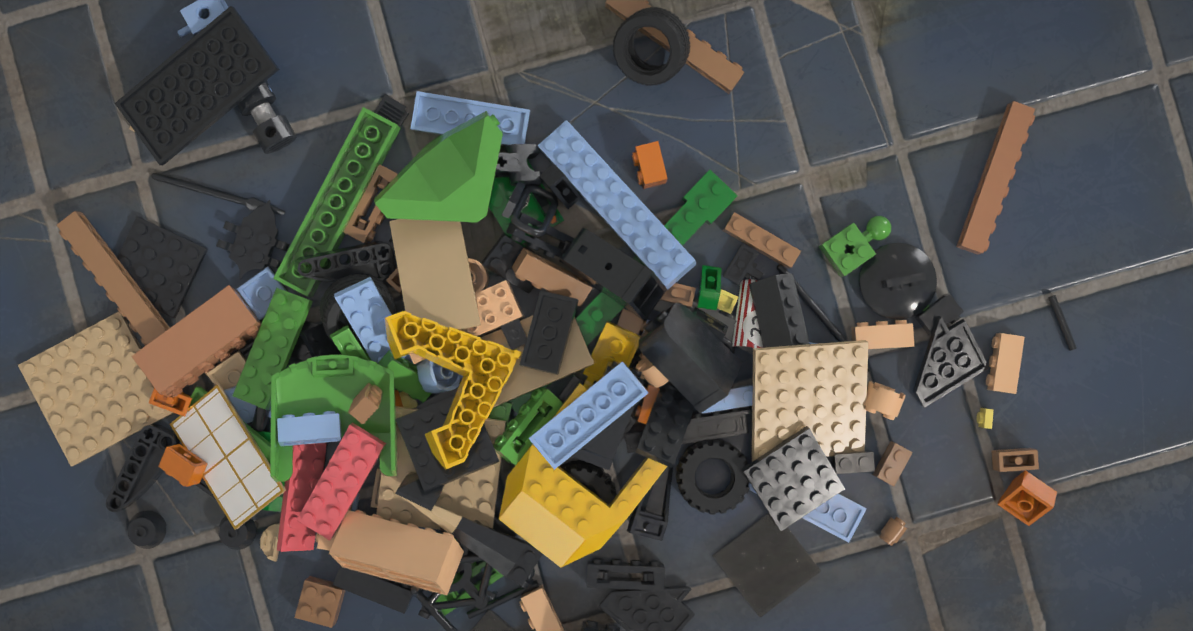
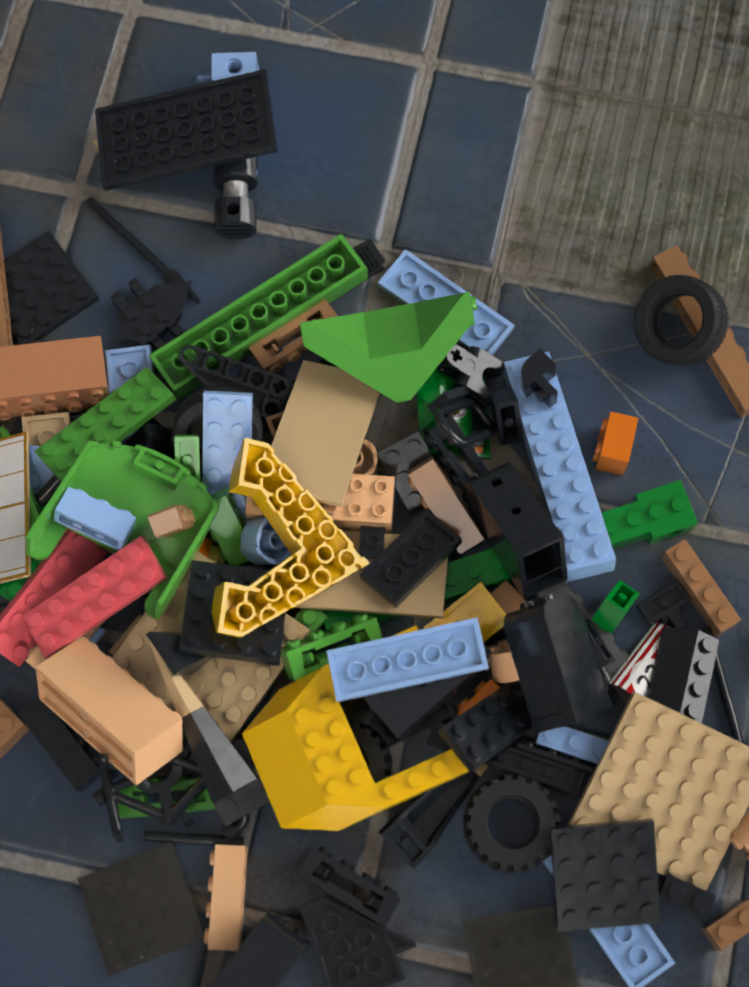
camera: 30 degrees right, 15 degrees down
(566, 148) = (535, 376): none -> black brick
(680, 294) = (579, 591): medium nougat plate -> none
(727, 301) = (626, 635): light yellow plate -> none

